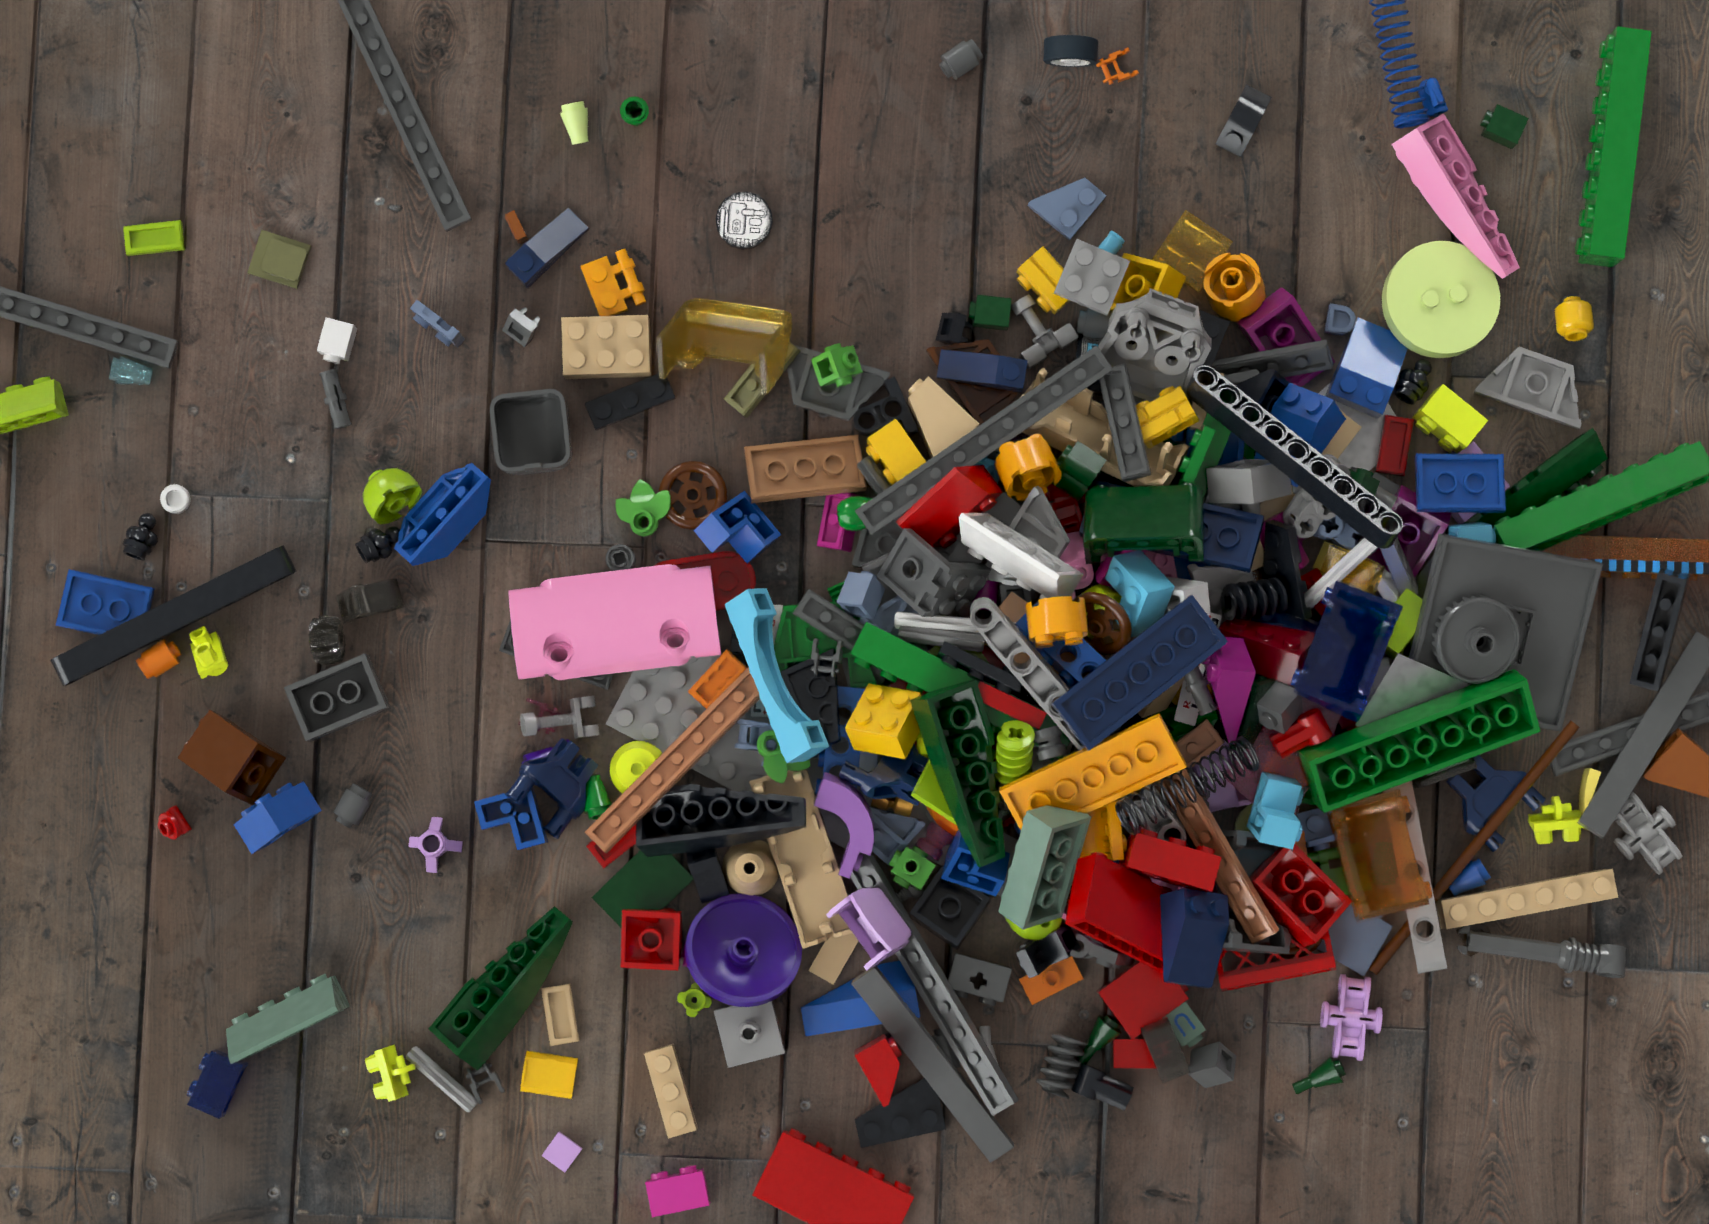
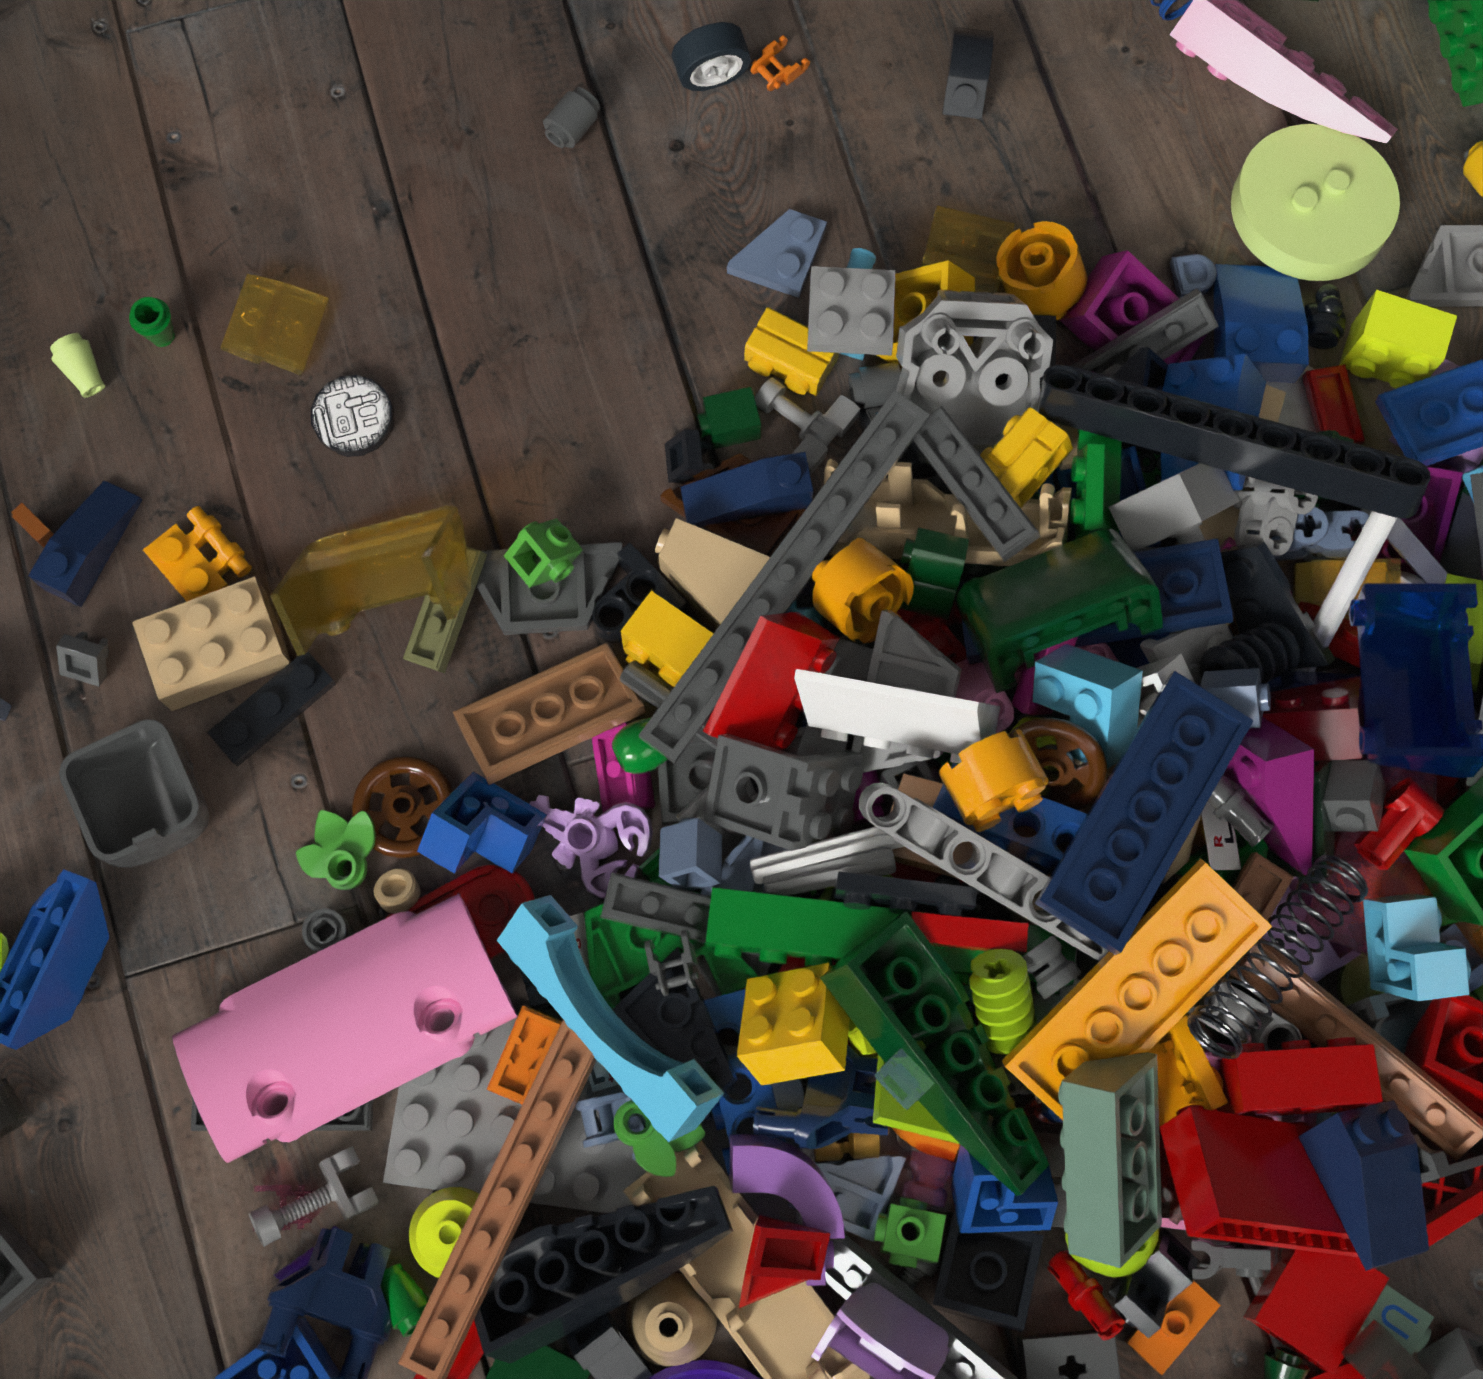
camera: 20 degrees left, 10 degrees down
(671, 548) = (397, 890): none -> tan tile
(713, 137) = (274, 323): none -> clear yellow slope
(806, 560) = (594, 838): none -> lavender animal
(829, 853) = (782, 1257): none -> red slope
(937, 777) = (904, 1079): none -> clear light blue tile
(1003, 942) = (1086, 1295): none -> red pin
(1230, 620) = (1240, 690): none -> sand blue brick

